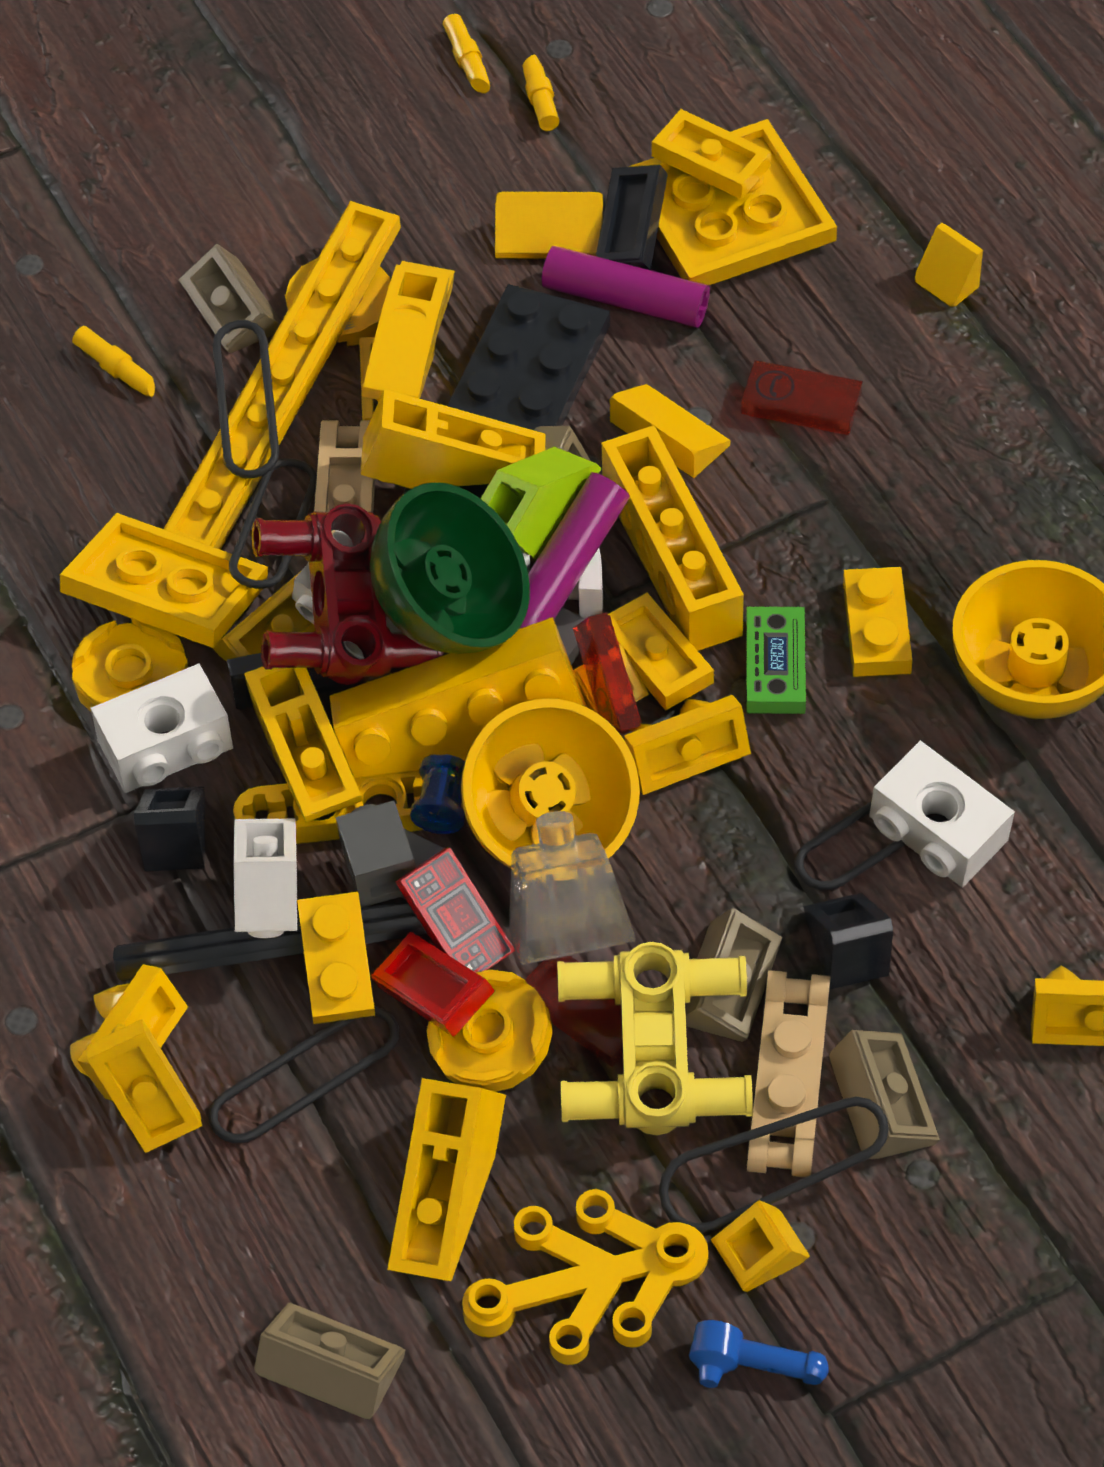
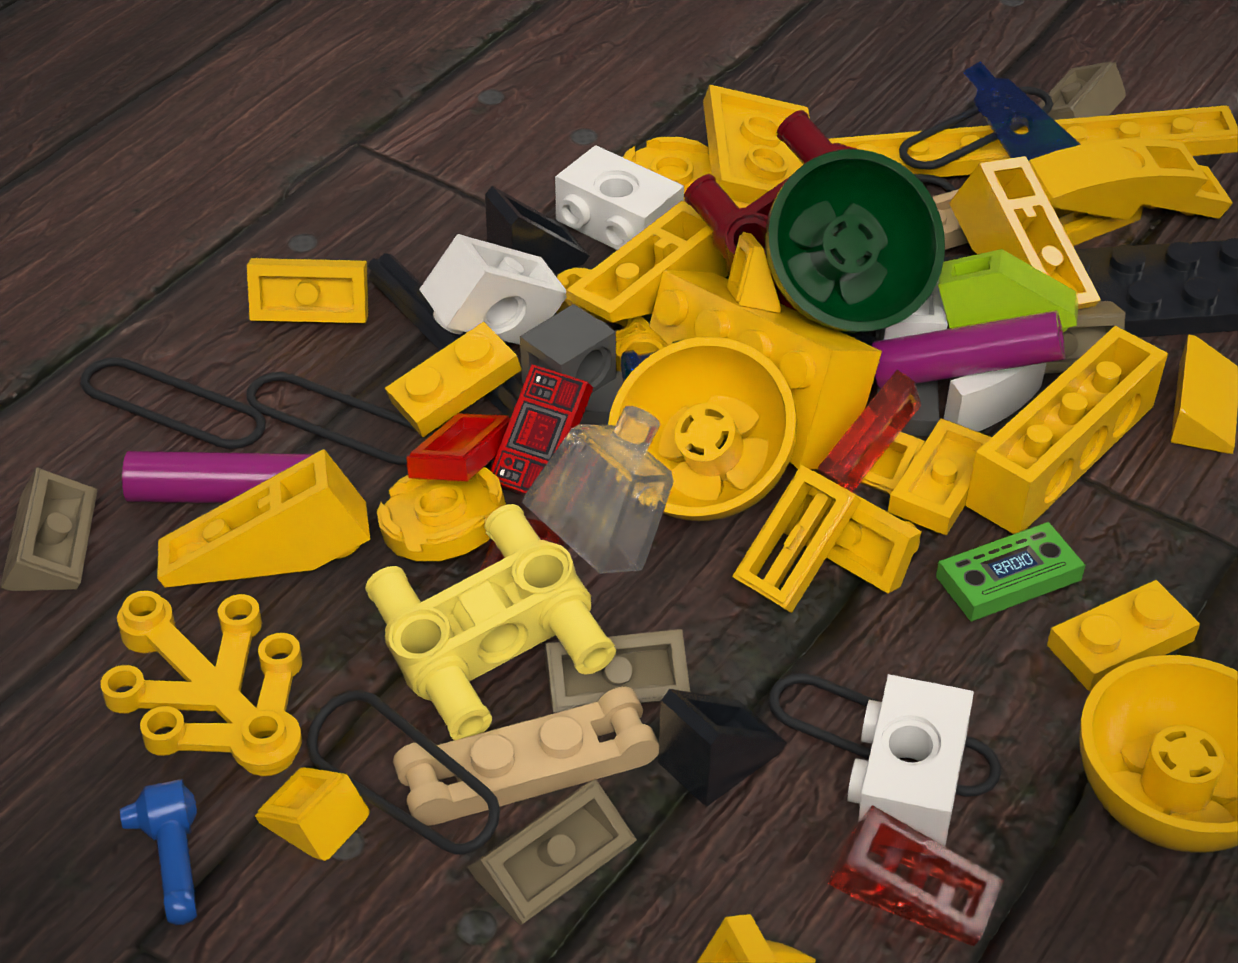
camera: 60 degrees right, 10 degrees down
(114, 361) = (957, 63): yellow piece -> none
(143, 1085) = (240, 314): yellow tile -> none
(210, 1228) = (166, 421): none -> black piece
(306, 359) = (1044, 133): none -> clear blue piece
(347, 1190) = (198, 475): none -> magenta piece
(410, 664) = (751, 278): none -> yellow slope
(662, 794) = (818, 548): none -> yellow tile
(1002, 894) = (905, 898): none -> clear red slope

